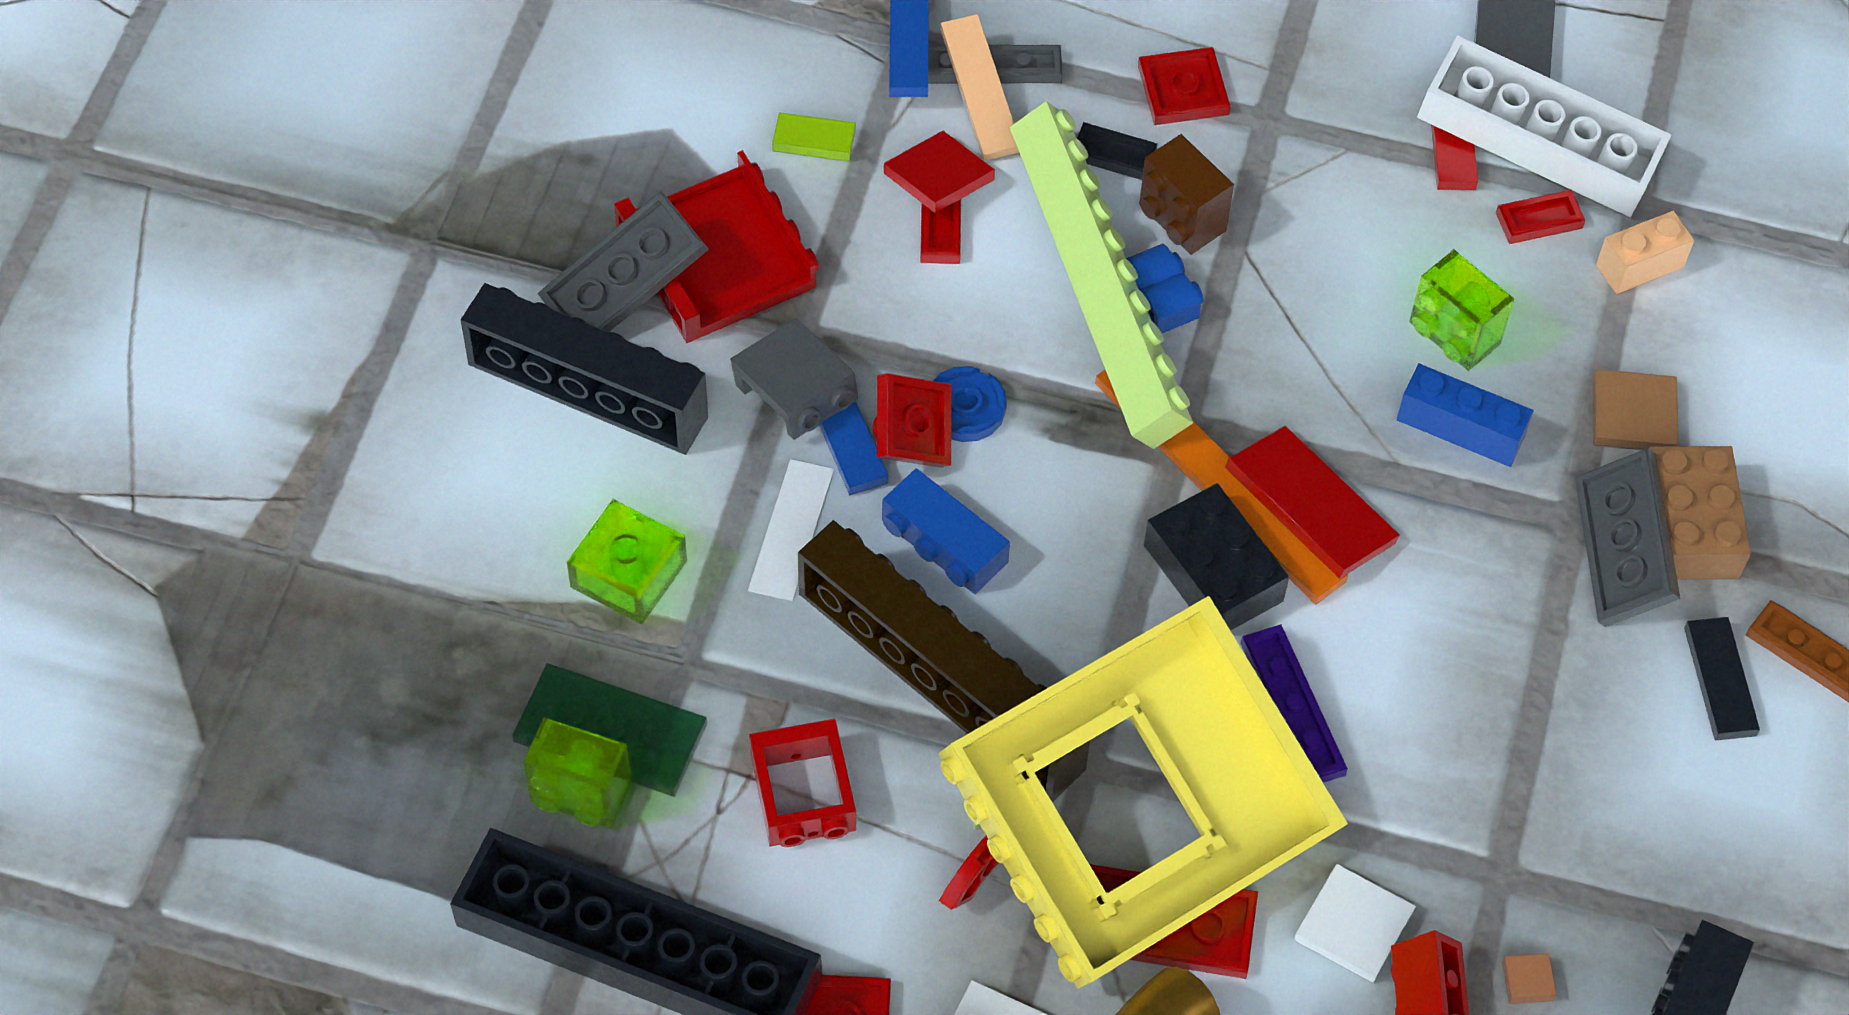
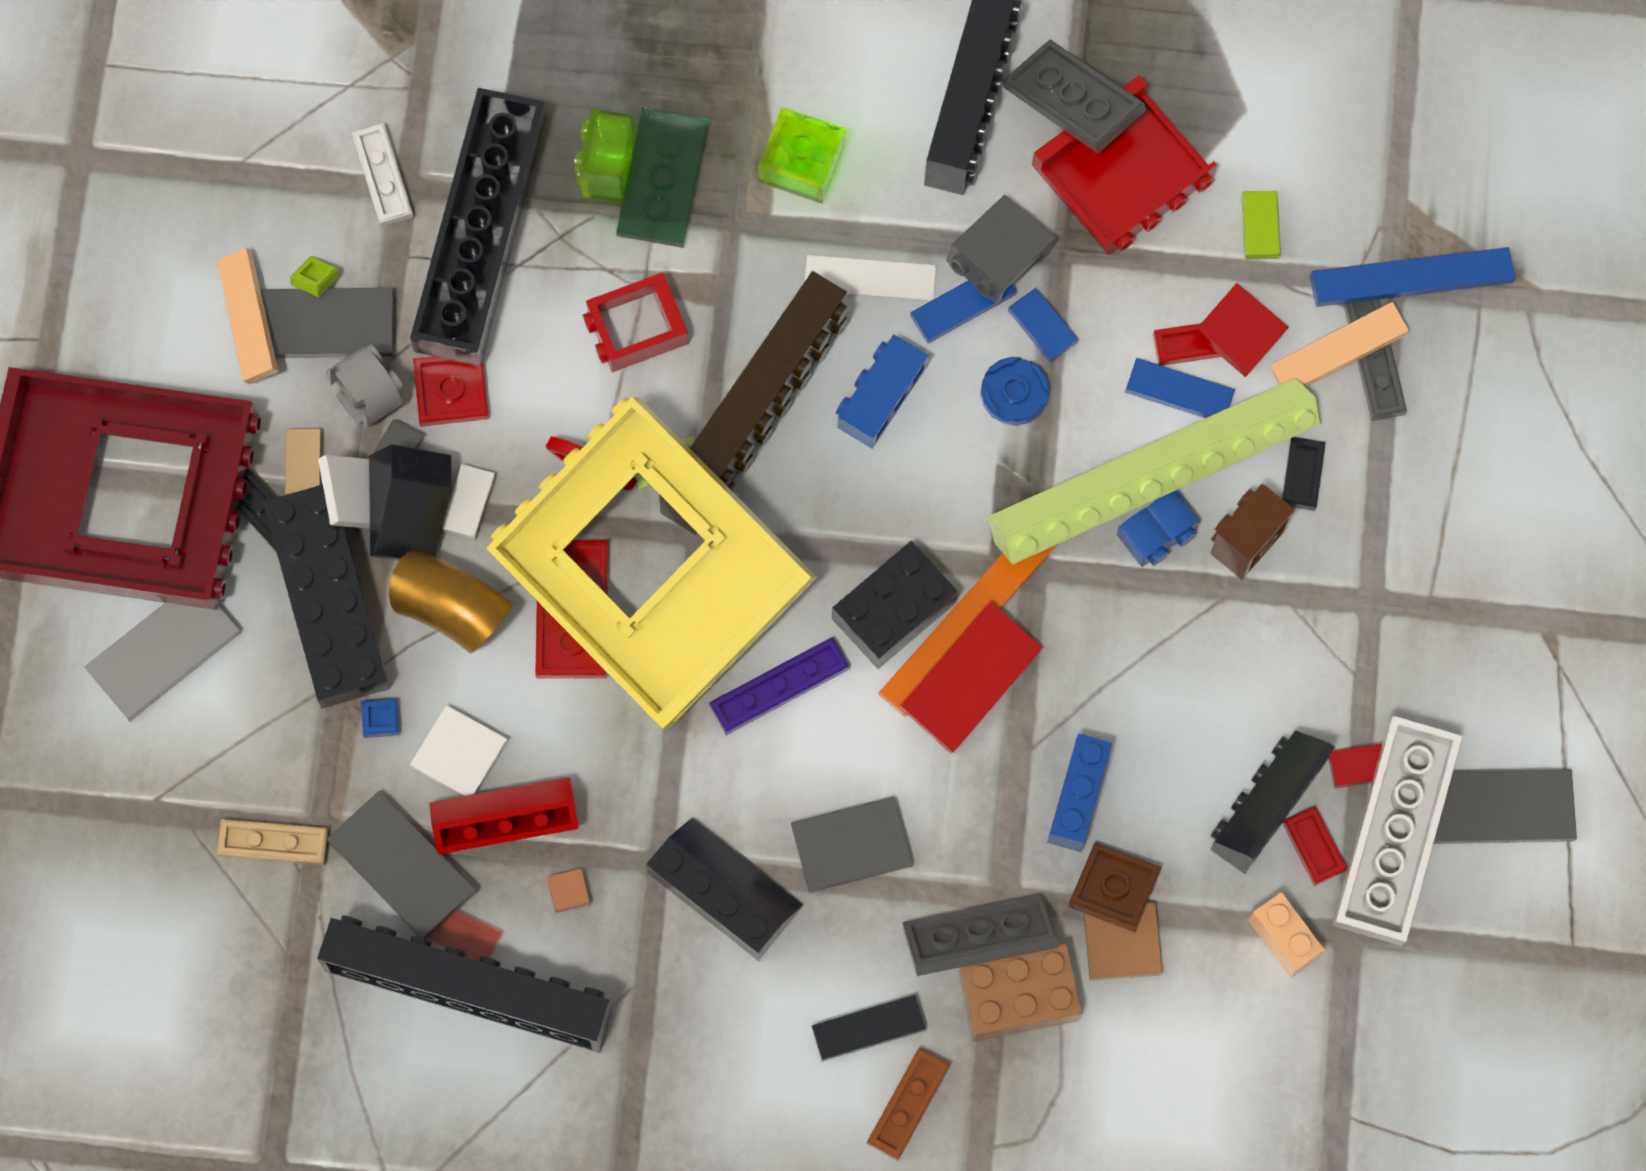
camera: 80 degrees right, 15 degrees up
(899, 356) = (1043, 325): none -> blue tile
(913, 420) = (971, 345): red tile -> none
(996, 245) = (1178, 389): none -> blue tile
(1183, 86) = (1389, 523): red tile -> none
(1354, 923) = (593, 752): white tile -> none
(1461, 310) = (1180, 774): clear neon green brick -> none
(1497, 231) = (1270, 800): none -> black slope
(1499, 660) = (851, 844): none -> dark grey tile
(1544, 801) = (723, 887): none -> black slope
(1577, 402) = (1115, 887): none -> reddish brown tile

